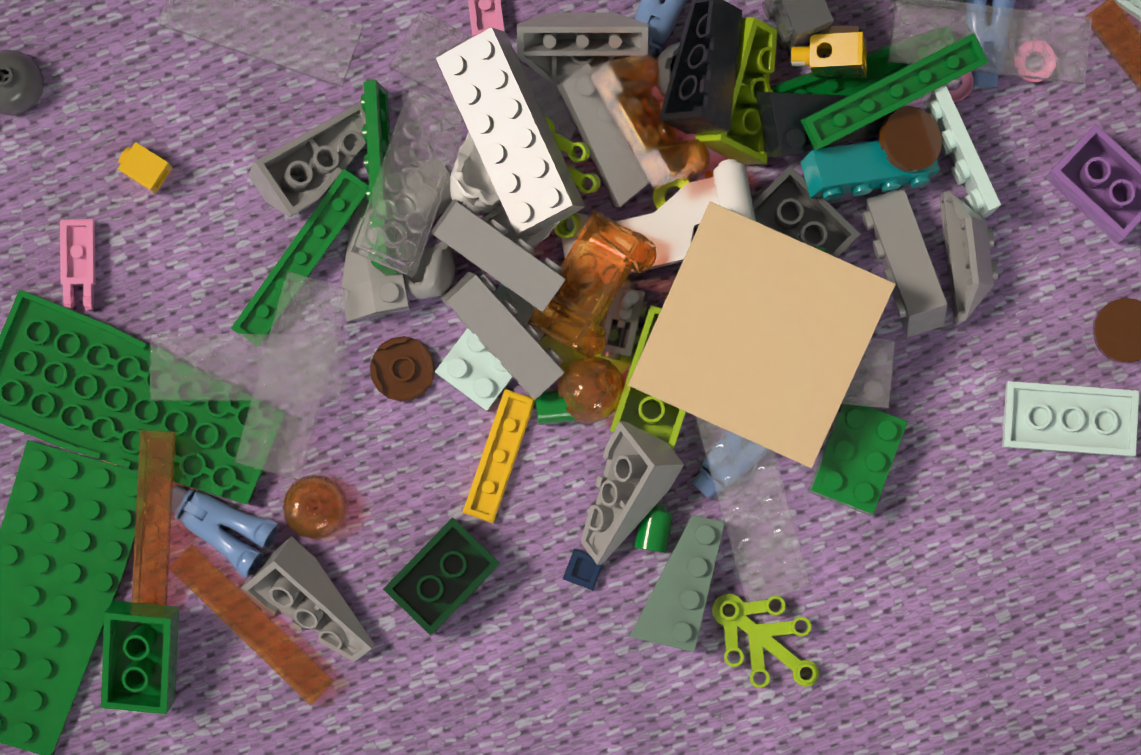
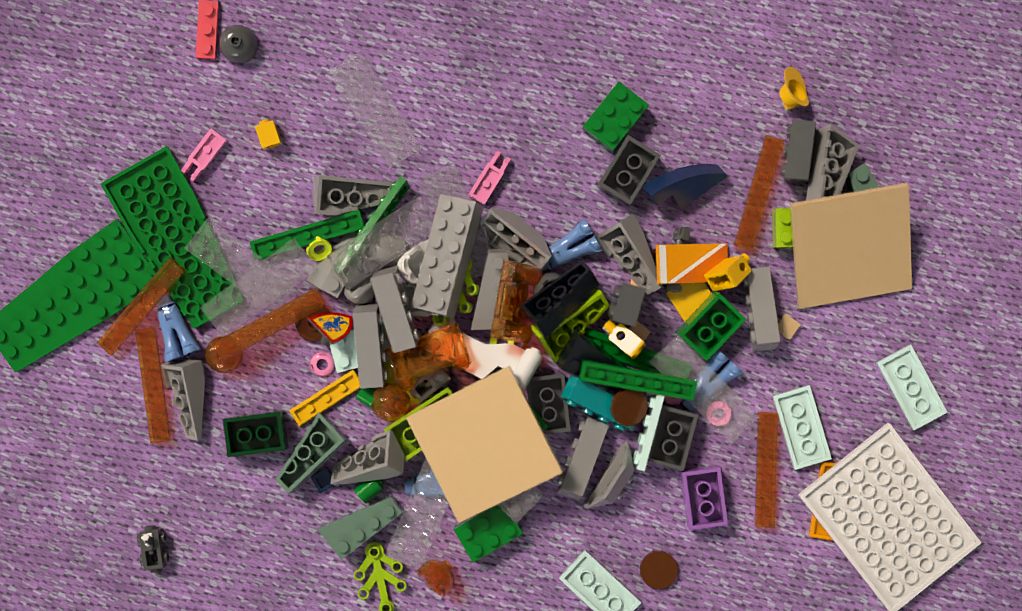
camera: 30 degrees right, 5 degrees up
(139, 657) = (88, 361): green brick -> none
(342, 266) = (321, 255): none -> neon yellow piece
(344, 414) = (269, 324): none -> clear orange plate
(431, 349) = (332, 326): none -> shield
(457, 430) = (322, 355): none -> bright pink piece
(539, 535) = (313, 451): none -> sand green wedge
(840, 572) = (437, 575): none -> clear orange cylinder
(1003, 136) = (673, 437): none -> dark grey brick

